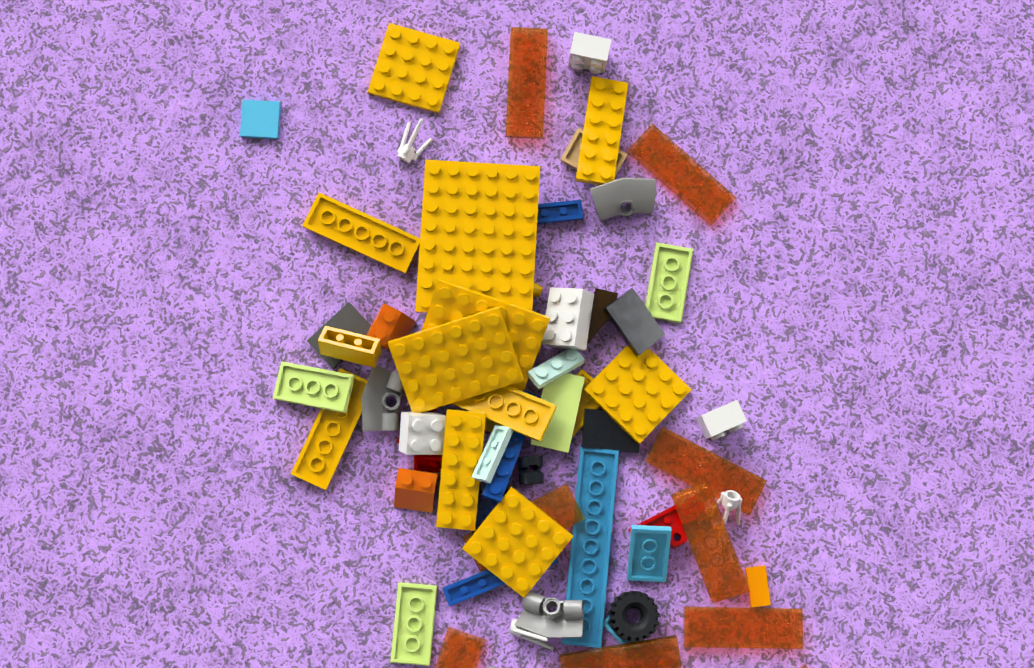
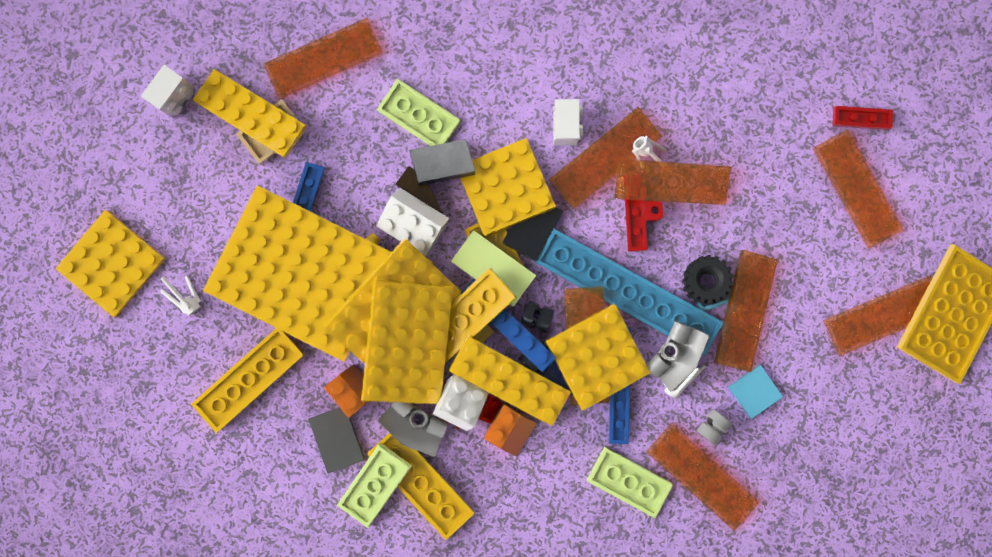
camera: 60 degrees left, 5 degrees up
(260, 119) = (95, 430): medium azure tile -> none
(350, 346) = (350, 436): yellow brick -> none
(492, 454) = (508, 346): light aqua plate -> none
(526, 83) = (171, 163): clear orange plate -> none
(555, 367) = (453, 253): light aqua plate -> none
(636, 192) = (322, 106): light grey panel -> none
(648, 553) = (658, 242): medium azure plate -> none
(743, 627) = (758, 187): clear orange plate -> none
(758, 585) = (727, 156): light orange tile -> none

